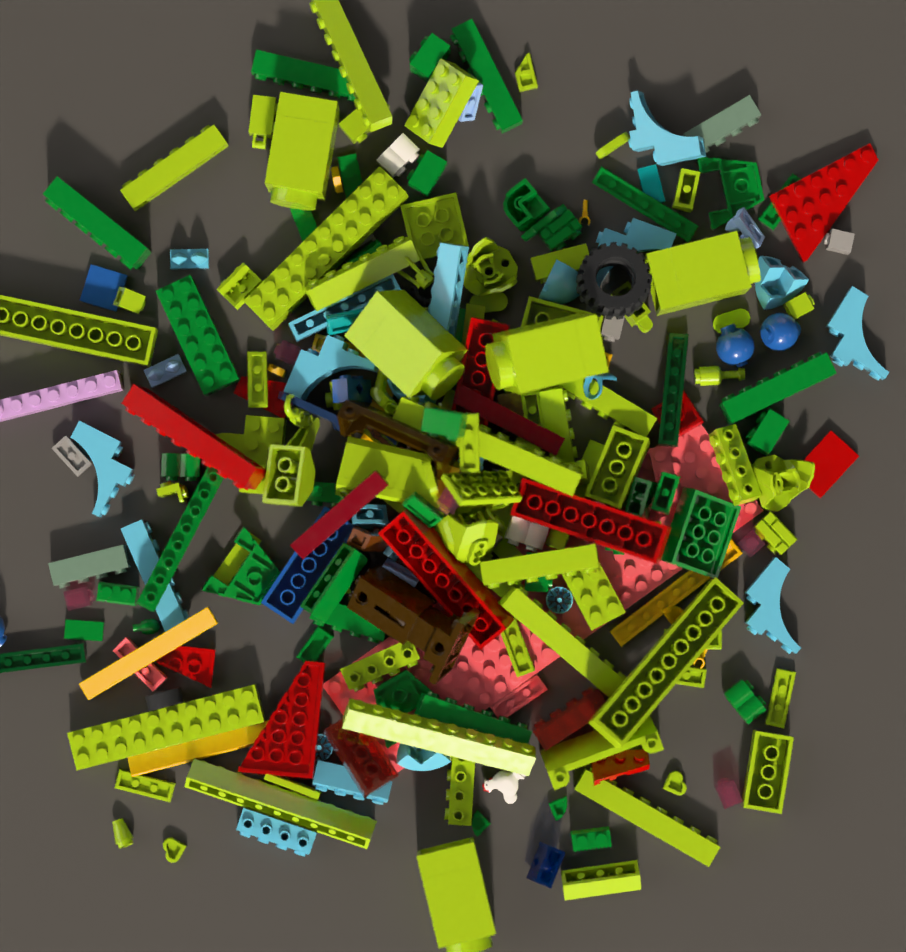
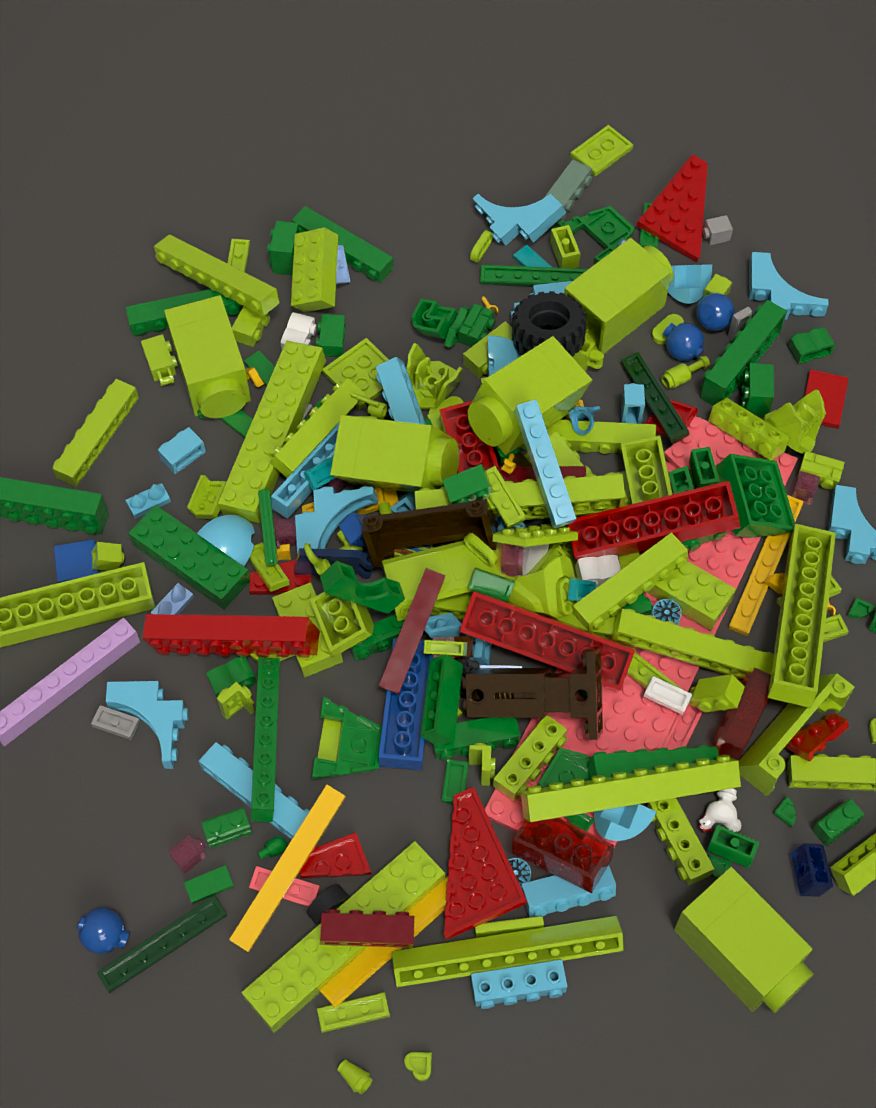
camera: 30 degrees left, 25 degrees down
(89, 565) = (183, 816): sand green brick -> none
(180, 739) = (367, 929): none -> dark red brick
(239, 224) = (181, 450): none -> medium azure piece
(239, 337) = (231, 536): none -> medium azure brick
(273, 348) = (268, 527): none -> green axle
(324, 474) = (380, 595): none -> green arch
(343, 652) = (481, 755): none -> lime bracket
(359, 542) = (445, 647): none -> lime piece
(383, 43) = (239, 254): none -> lime tile
(496, 550) = (580, 588): none -> teal tile
(497, 815) = (733, 846): none -> green brick
(498, 405) = (509, 466): none -> yellow hand
(516, 439) = (544, 464): none -> medium azure brick
(518, 670) = (667, 695): none -> white tile
(525, 75) = (375, 232): lime tile -> none
(555, 692) = (717, 693): none -> lime brick
(649, 387) = (632, 403): none -> medium azure piece
(727, 673) = (860, 609): none -> green tile
(788, 90) = (602, 150): none -> lime tile
(795, 356) = (738, 322): none -> light grey tile
(847, 407) = (811, 345): none -> green brick

